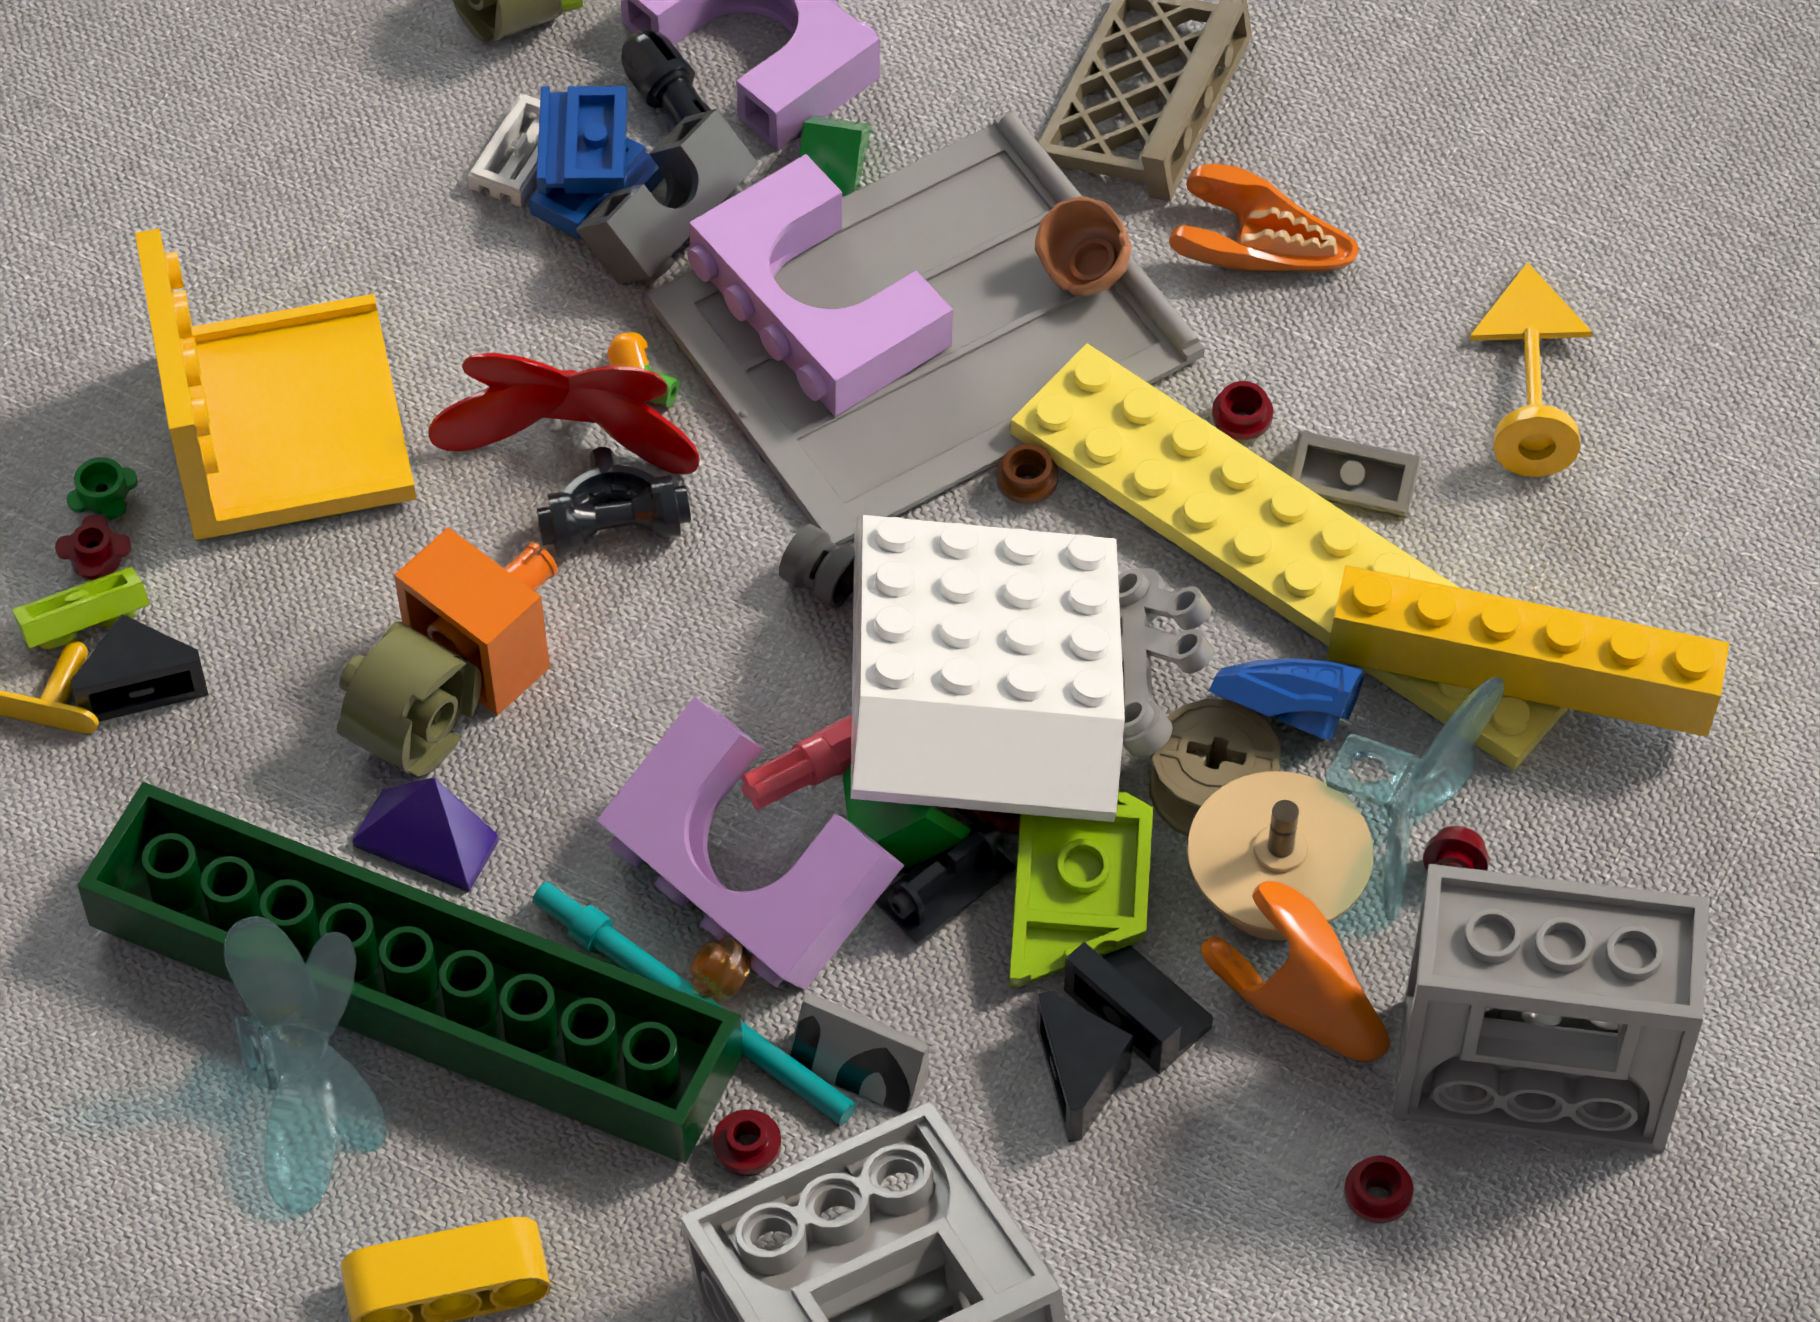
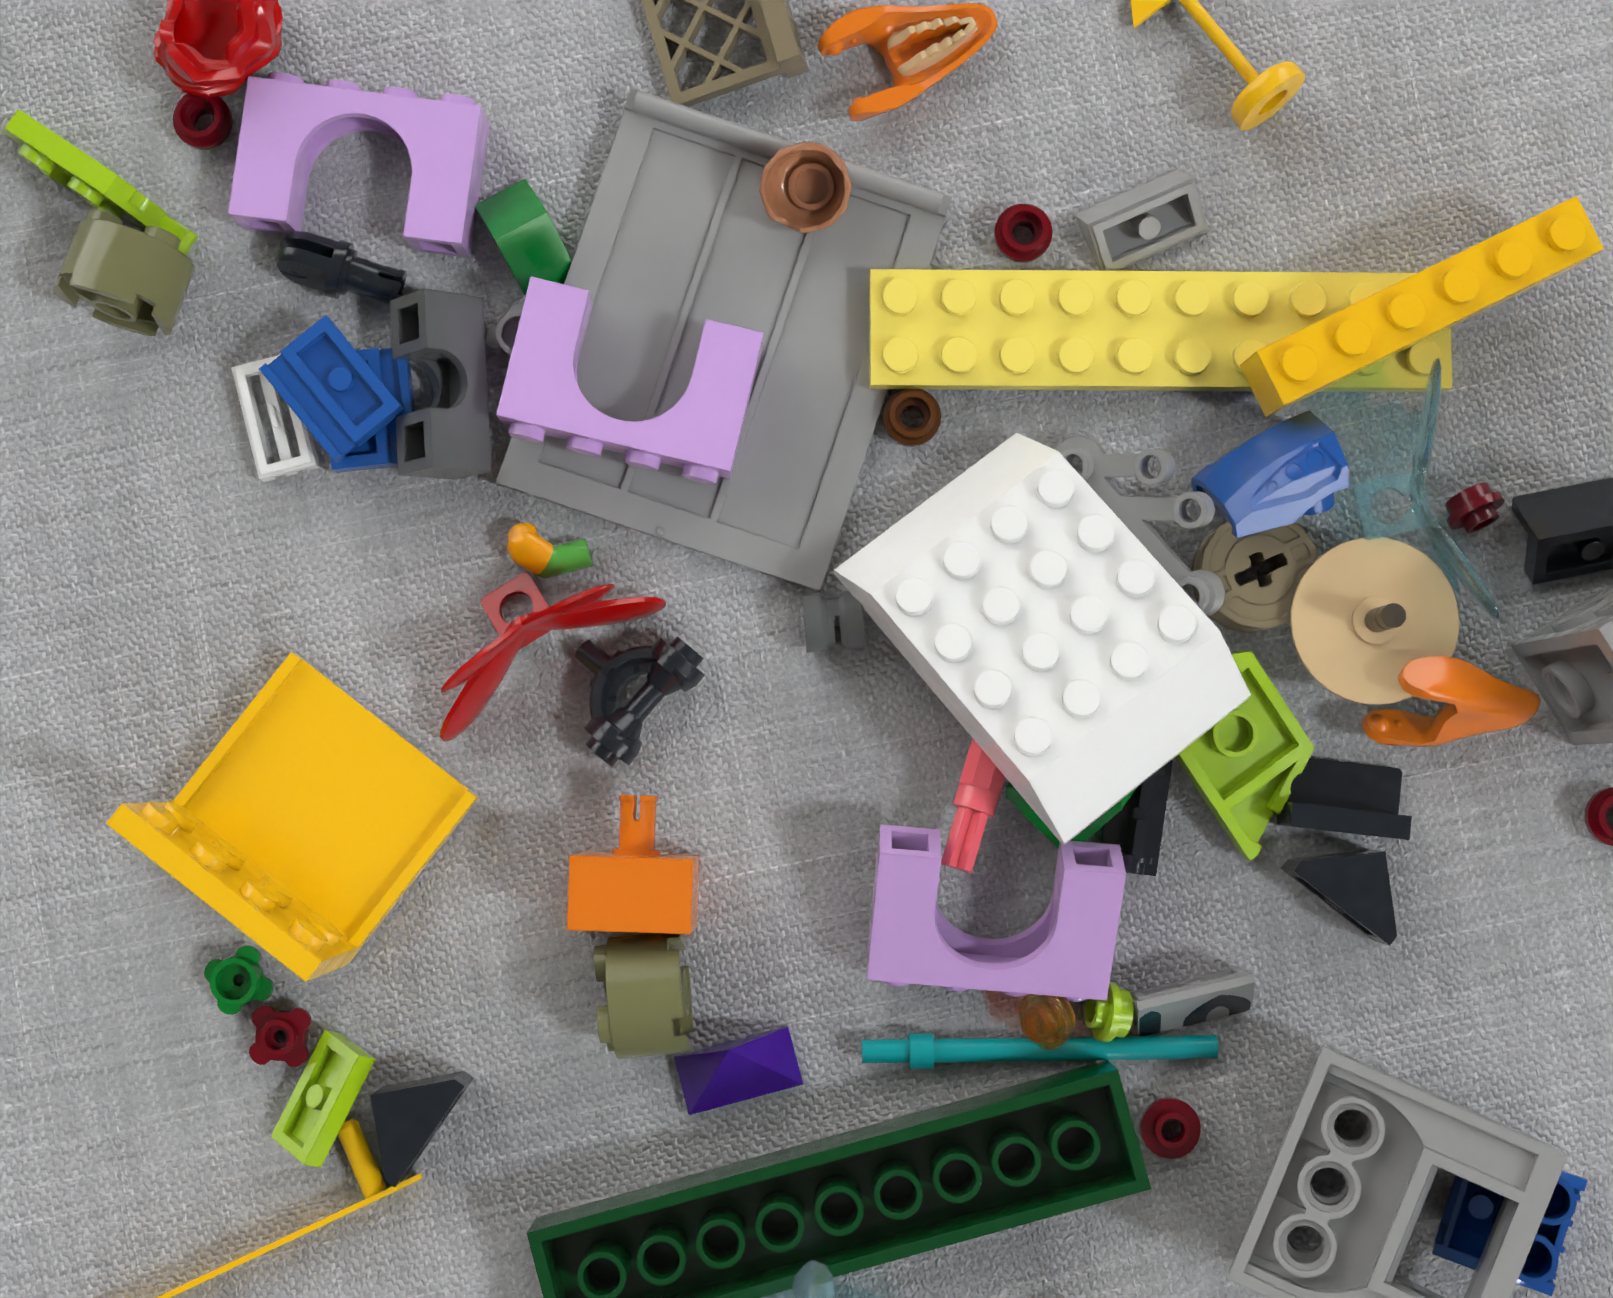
camera: 40 degrees left, 30 degrees up
(776, 1008) = (1110, 1017): none -> lime plate

